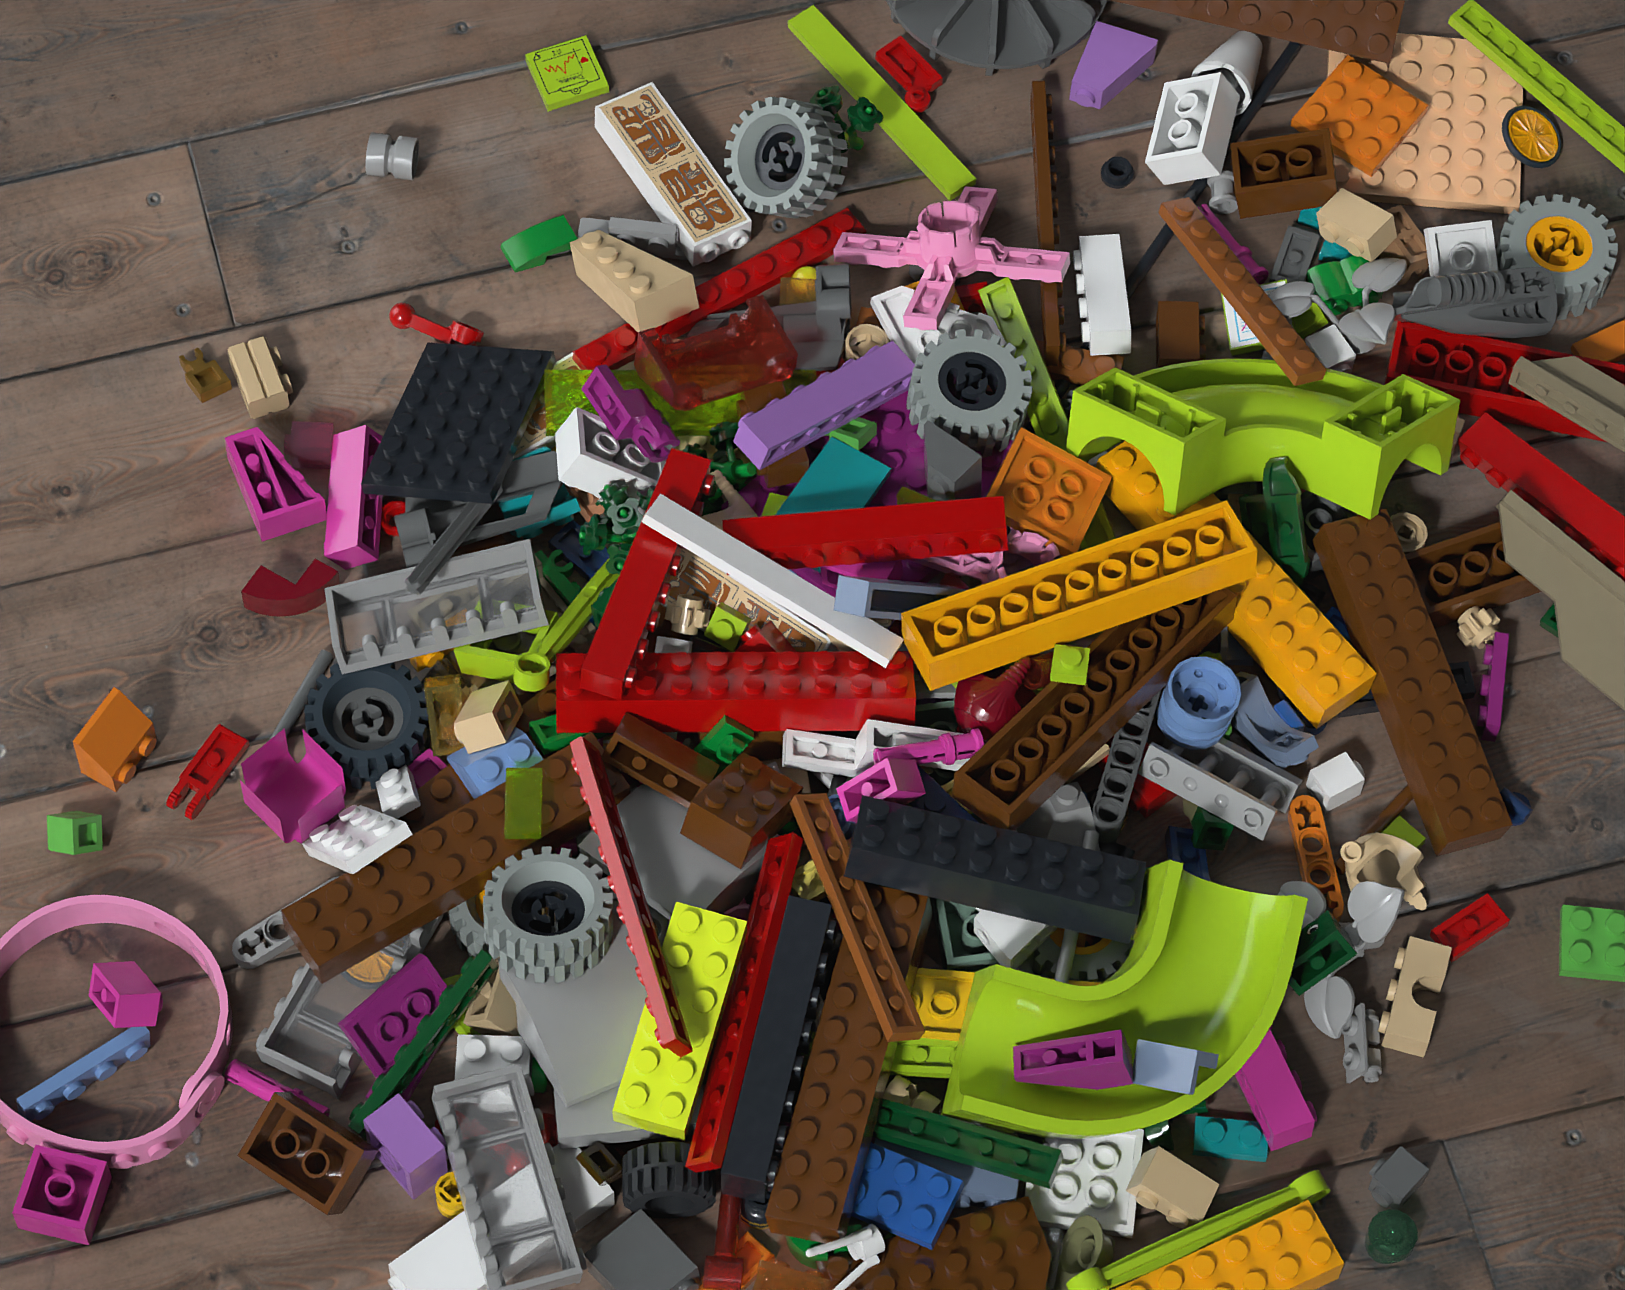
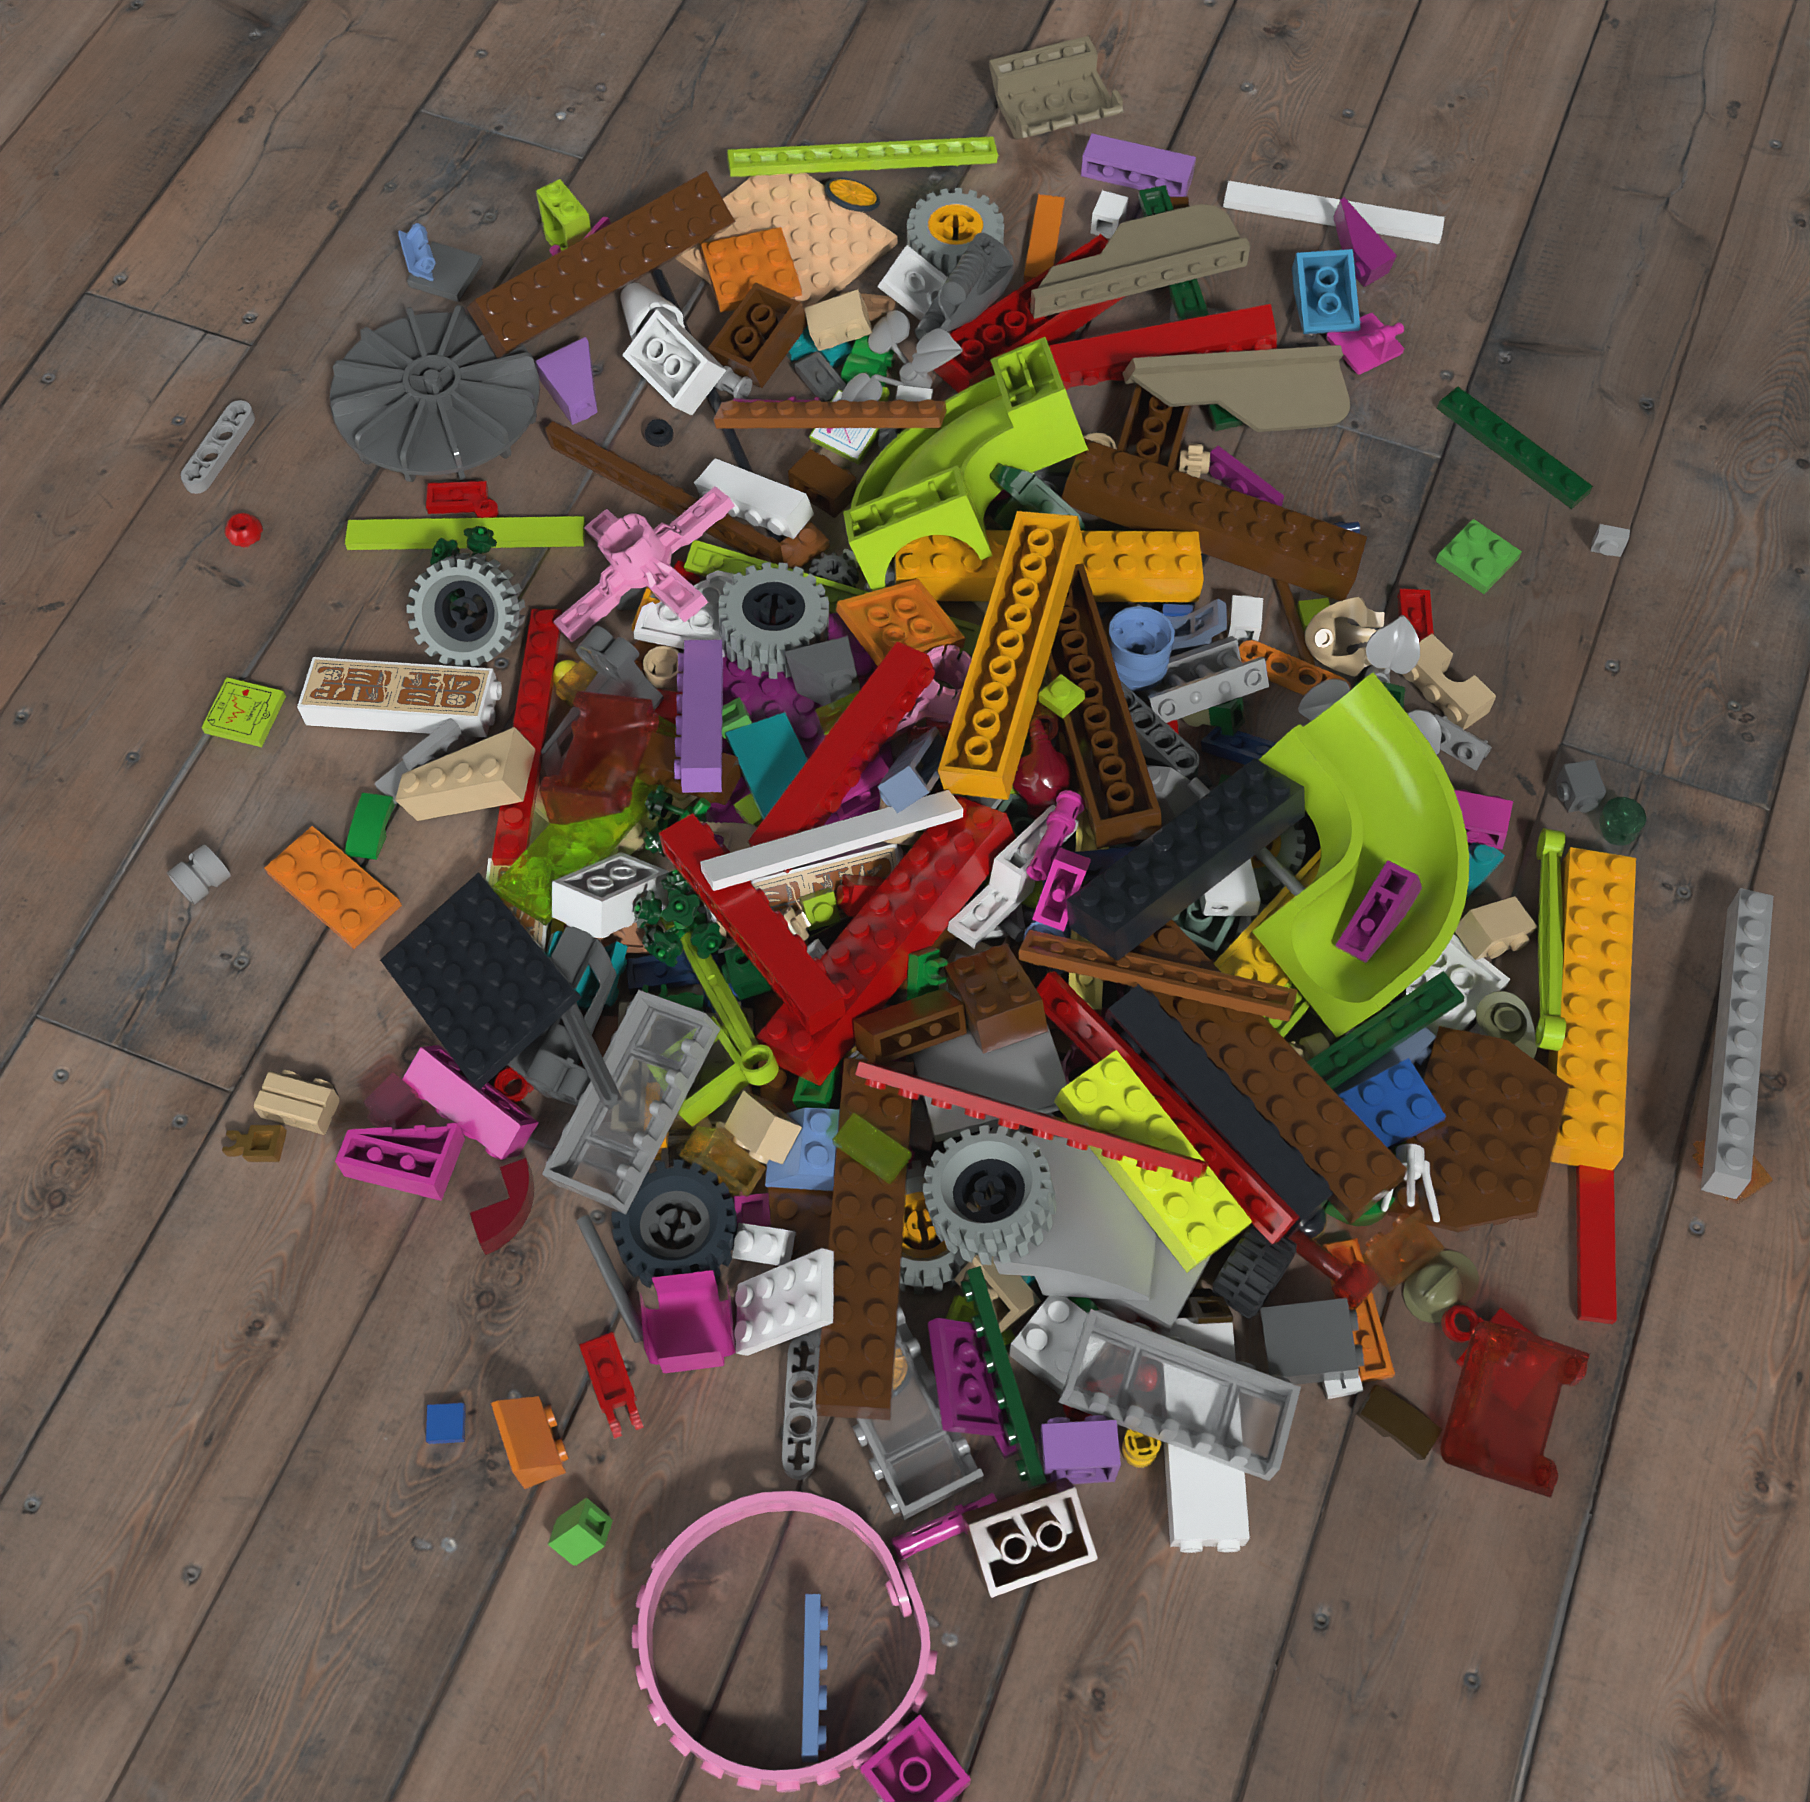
camera: 50 degrees left, 0 degrees up
(88, 678) = (445, 1423): none -> blue tile
(125, 994) = (772, 1591): dark pink brick -> none
(404, 316) = (342, 961): red piece -> none
(464, 260) = (333, 887): none -> orange plate
(630, 415) = (588, 851): magenta plate -> none
(1169, 1066) = (1432, 850): sand blue panel -> none

